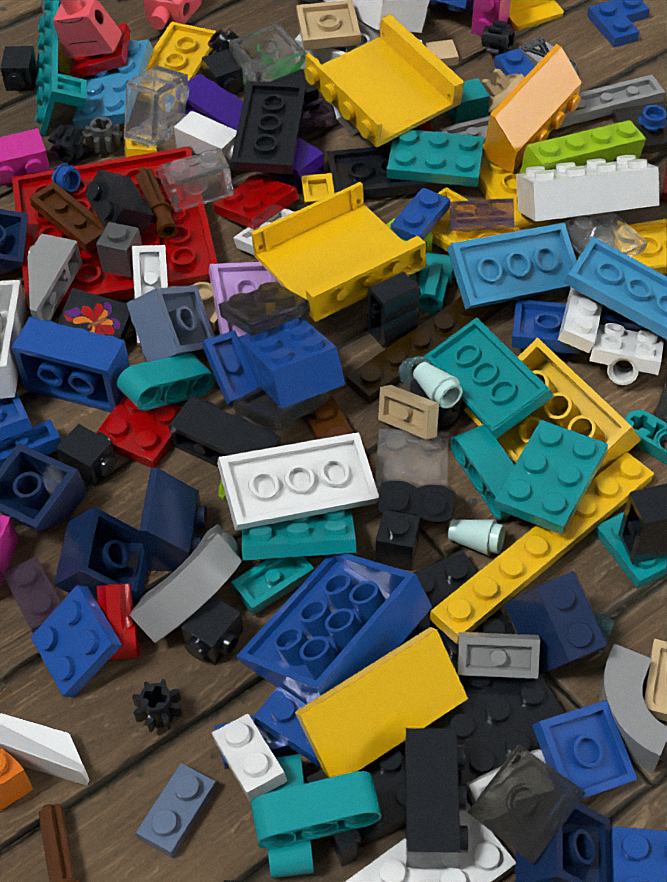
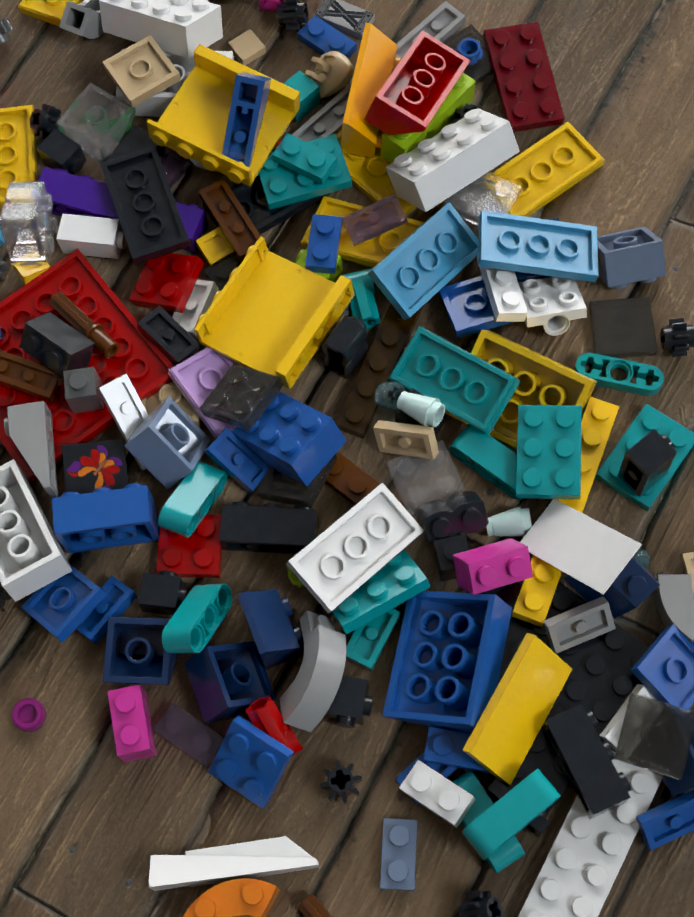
camera: 20 degrees left, 15 degrees up
(101, 483) = (197, 618): none -> teal beam
(196, 179) = (106, 284): clear slope -> none
(227, 238) = (168, 336): none -> black plate
(343, 161) = (230, 217): none -> reddish brown plate
(402, 80) = (245, 116): none -> blue slope
(431, 553) = (492, 566): none -> dark pink brick
(441, 141) = (305, 158): none -> teal plate
(535, 569) = (580, 546): none -> white sticker
(578, 111) = (416, 87): none -> red slope

